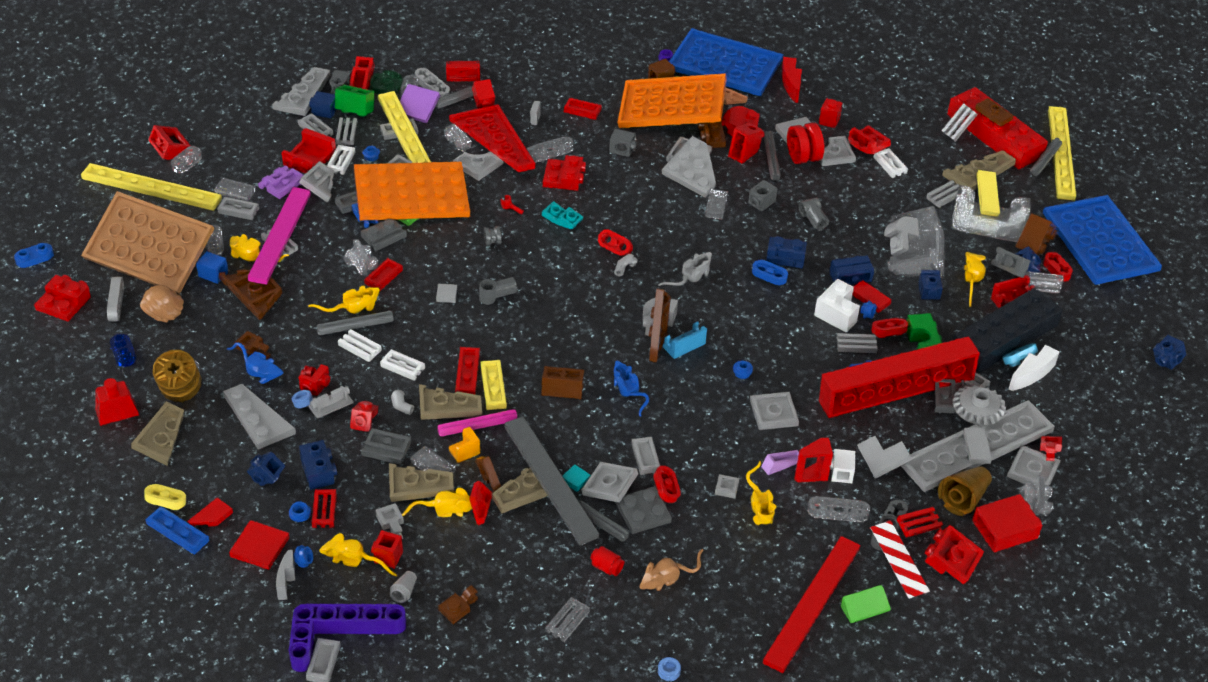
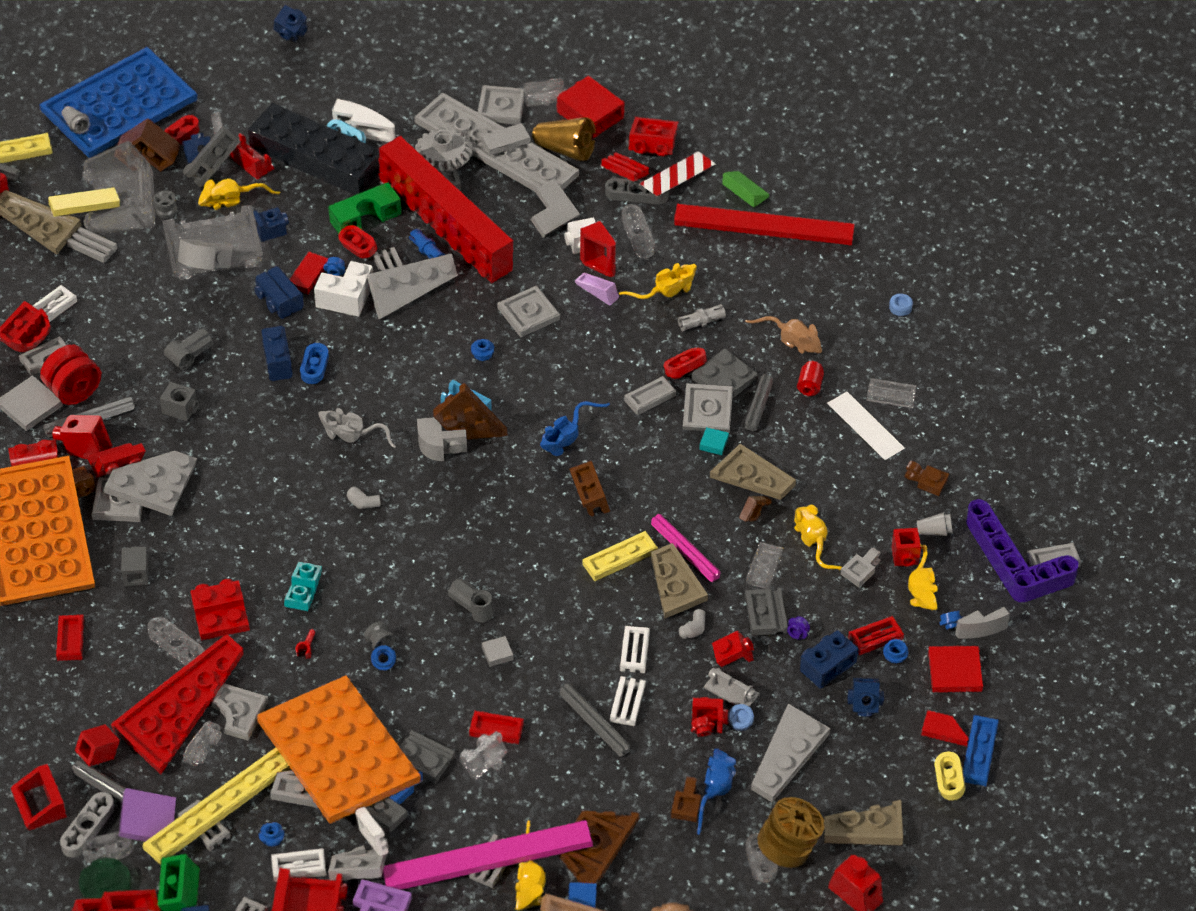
camera: 110 degrees left, 5 degrees up
(333, 187) = (371, 831): none -> white tile
(347, 122) = (235, 879): light grey tile -> none
(355, 301) = (566, 725): yellow animal -> none
(358, 458) = (798, 628): none -> dark purple plate
(417, 484) = (802, 561): dark tan wing -> none
(467, 370) = (612, 586): red tile -> none
(467, 448) = (727, 543): light orange panel -> none
(474, 234) = (383, 650): none -> blue plate
(480, 501) = (796, 502): red tile -> none
(535, 113) = (110, 677): light grey tile -> none
(542, 589) = (866, 425): none -> white sticker
(551, 481) = (737, 449): dark grey tile -> none
(616, 242) = (333, 514): red plate -> none
(715, 516) = (701, 317): none -> light grey pin
(716, 204) = (209, 445): clear tile -> none
(721, 152) = (116, 457): none -> red bracket
(727, 486) = (655, 321): light grey tile -> none
(829, 339) = (405, 283): none -> light grey wing
(973, 236) = (165, 204): none -> dark grey wheel
(1051, 445) = (469, 90): red plate -> none
(1077, 202) = (76, 120): none -> light grey cone

